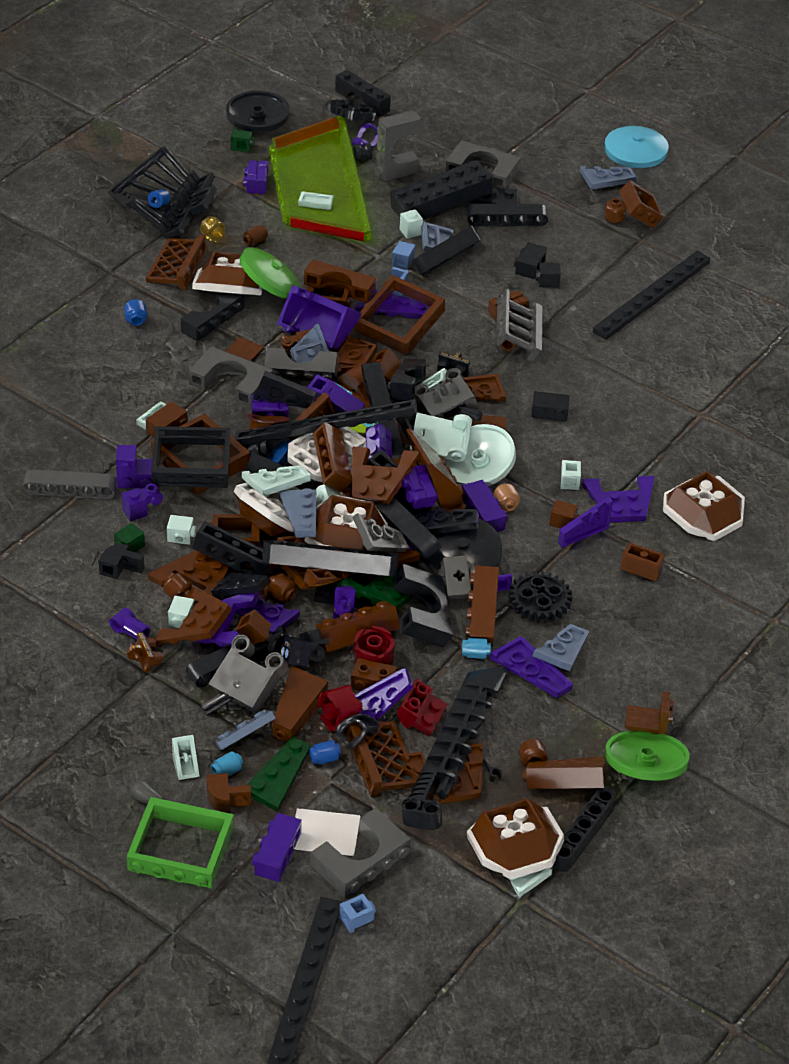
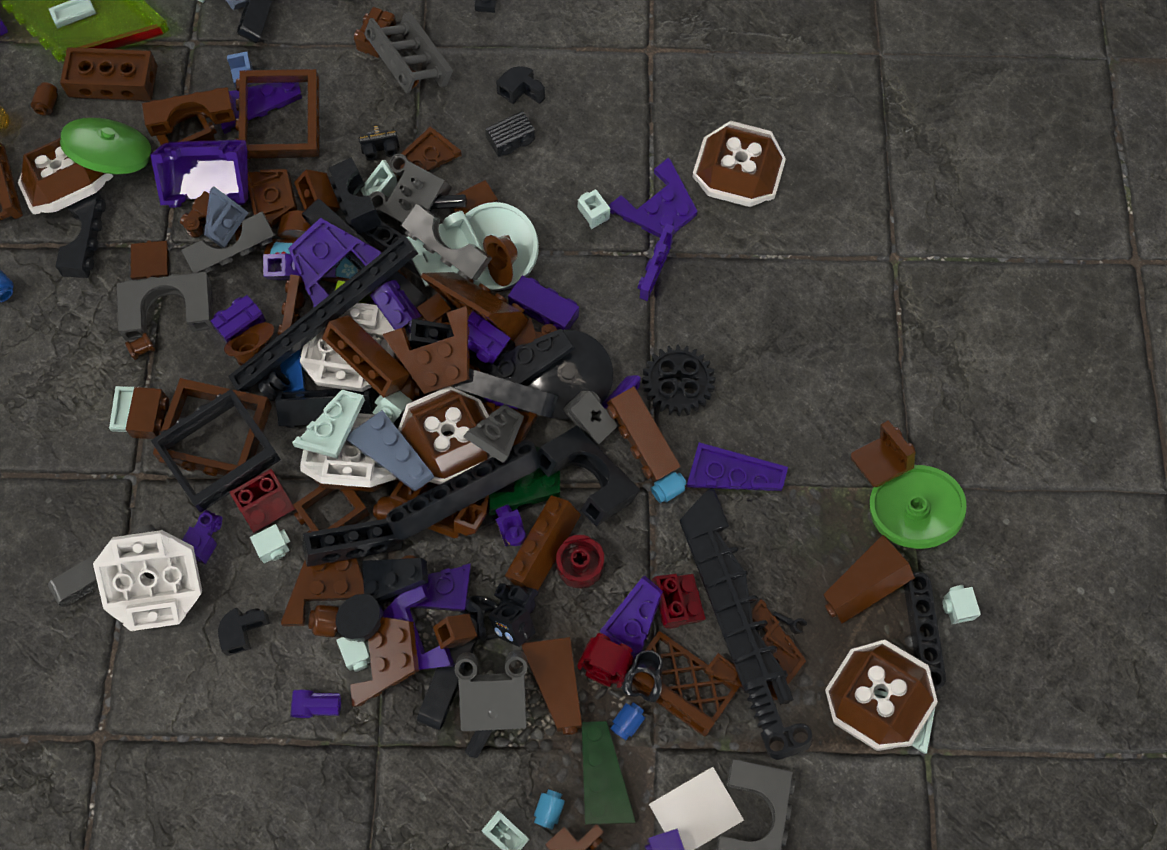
camera: 35 degrees left, 25 degrees up
(73, 486) = (144, 601): none -> white piece
(130, 470) = (161, 502): dark purple brick -> none
(132, 536) = (227, 594): dark green brick -> none
(142, 652) = (354, 731): reddish brown hips -> none
(195, 388) = (140, 346): none -> reddish brown bush
(197, 501) = (262, 500): none -> dark red brick
(199, 590) = (359, 618): none -> black tile
(244, 729) = (535, 753): sand blue wing -> none
(279, 389) = (238, 301): black wing -> none
(282, 587) = (430, 546): reddish brown head -> none
(307, 240) = (109, 74): none -> reddish brown brick
(356, 389) = (321, 250): none -> dark purple wing
(368, 673) = (602, 594): reddish brown brick -> none
(403, 255) = (220, 29): medium blue panel -> none
(449, 441) = (424, 226): none -> dark grey arch
(476, 459) = (503, 256): none -> reddish brown piece
(507, 497) = (556, 277): medium nougat head -> none
(532, 751) = (815, 578): reddish brown head -> none
(562, 514) = (626, 263): reddish brown brick -> none
(564, 648) = (748, 428): sand blue wing -> none
(583, 381) = (519, 81): none -> black brick
(626, 830) = (961, 604): none -> light aqua brick
(642, 561) = (741, 274): reddish brown brick -> none

